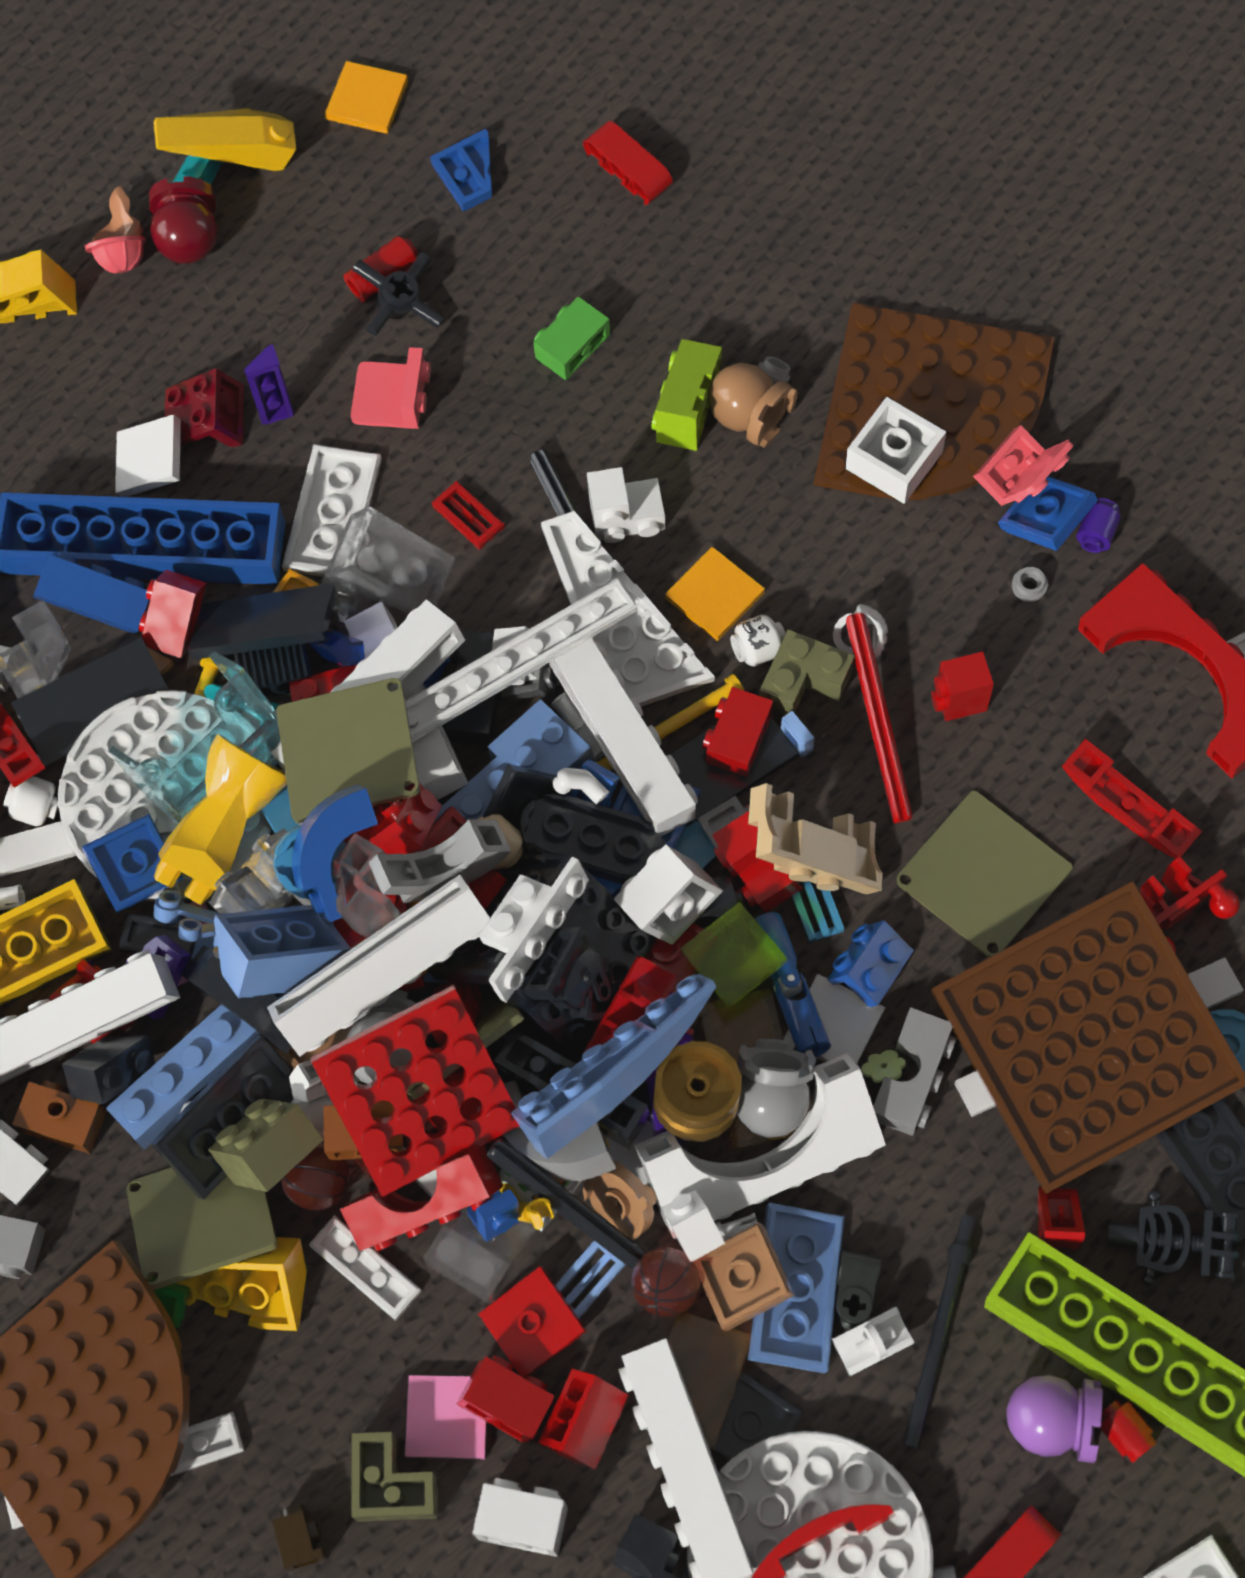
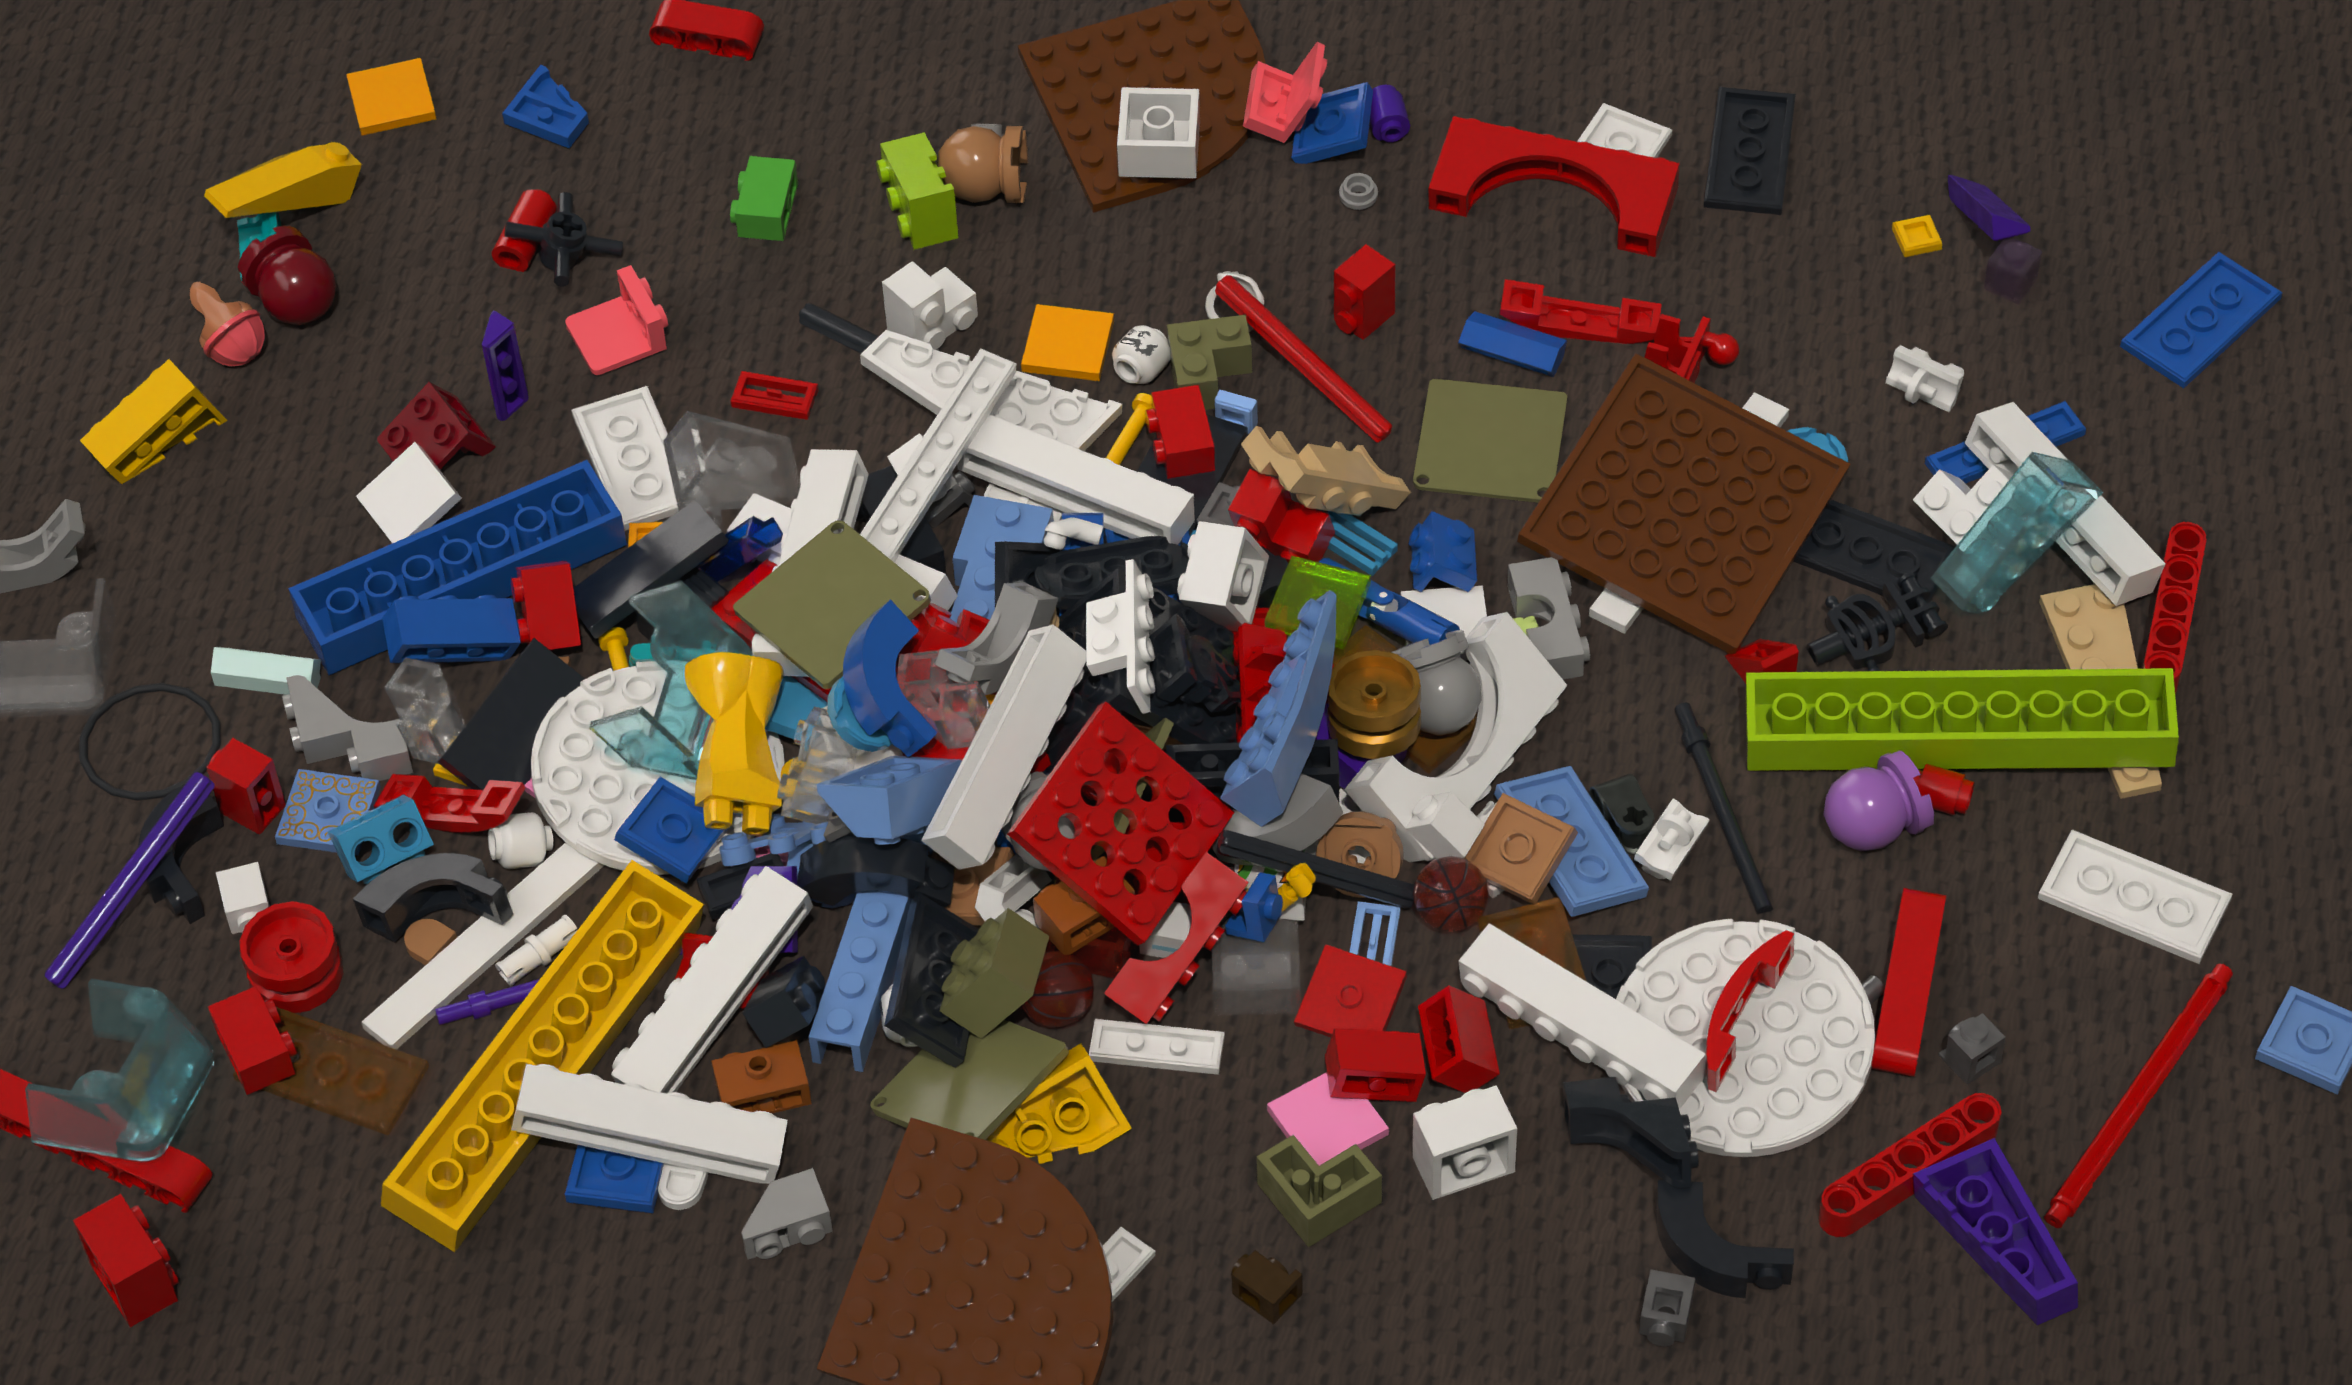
camera: 35 degrees left, 15 degrees down
(1058, 796) = (1513, 343): none -> blue piece

